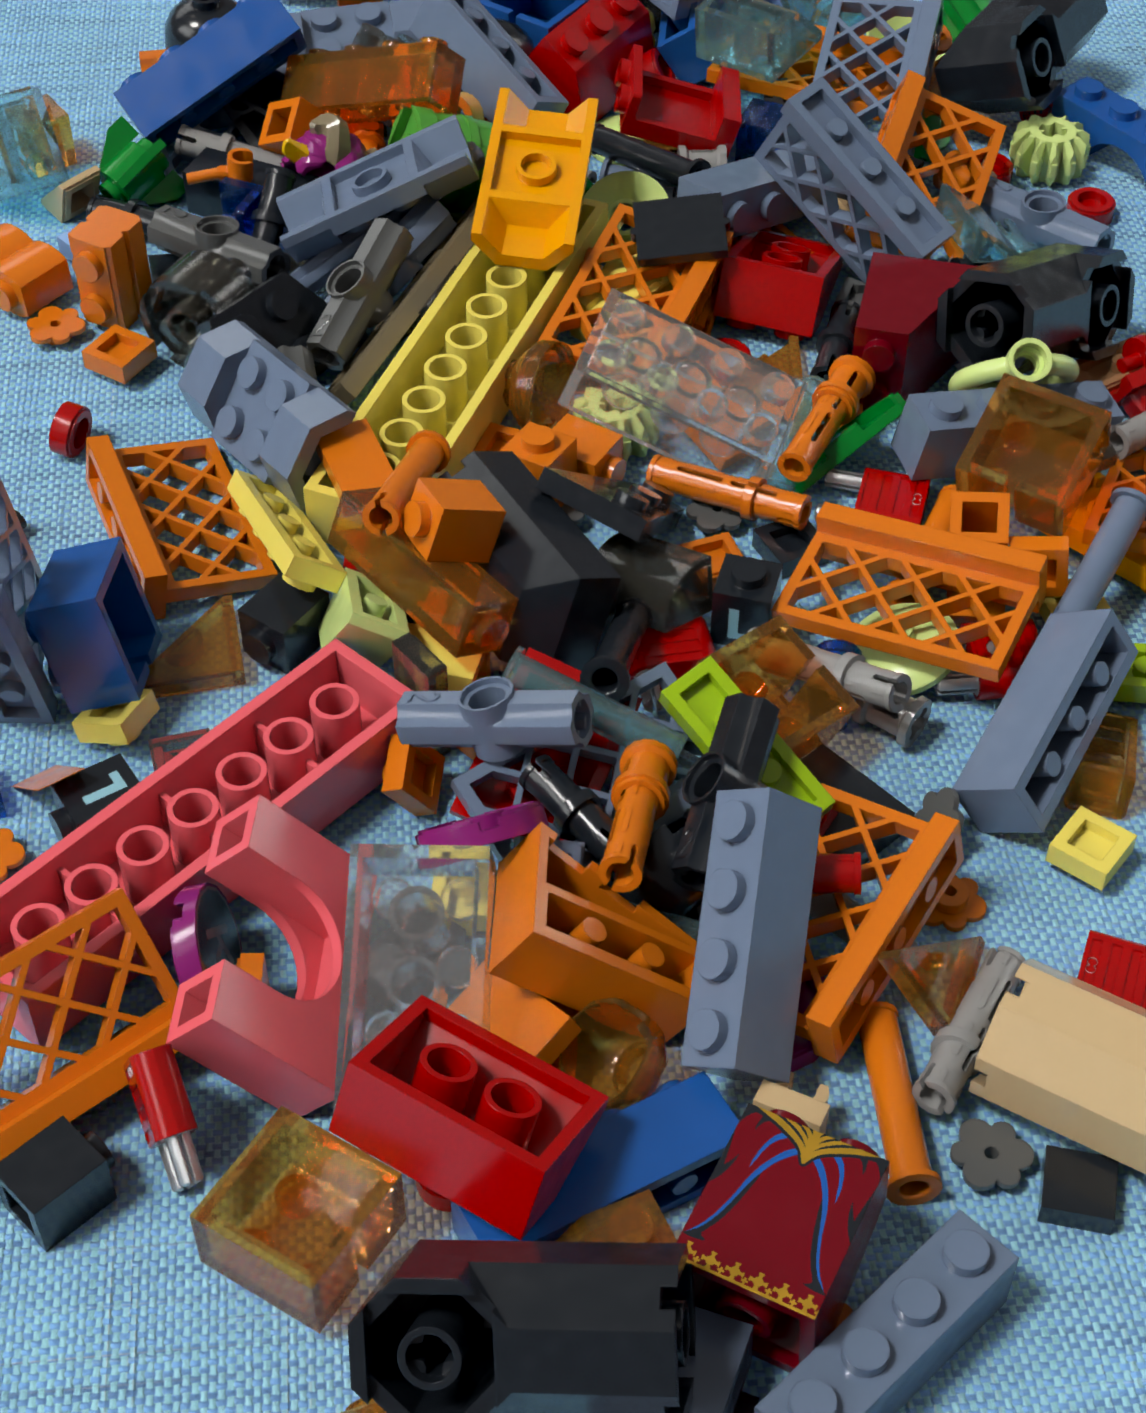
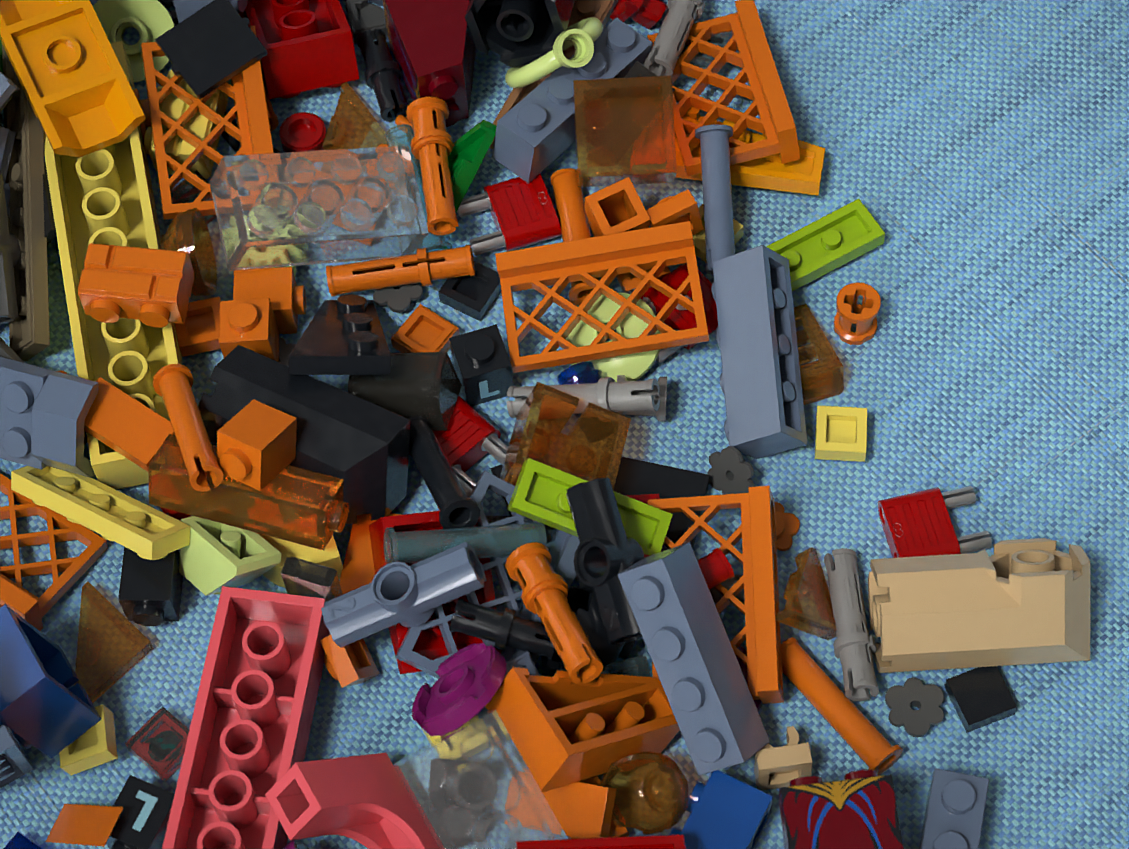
camera: 30 degrees left, 15 degrees up
(460, 364) = (136, 284): none -> orange brick

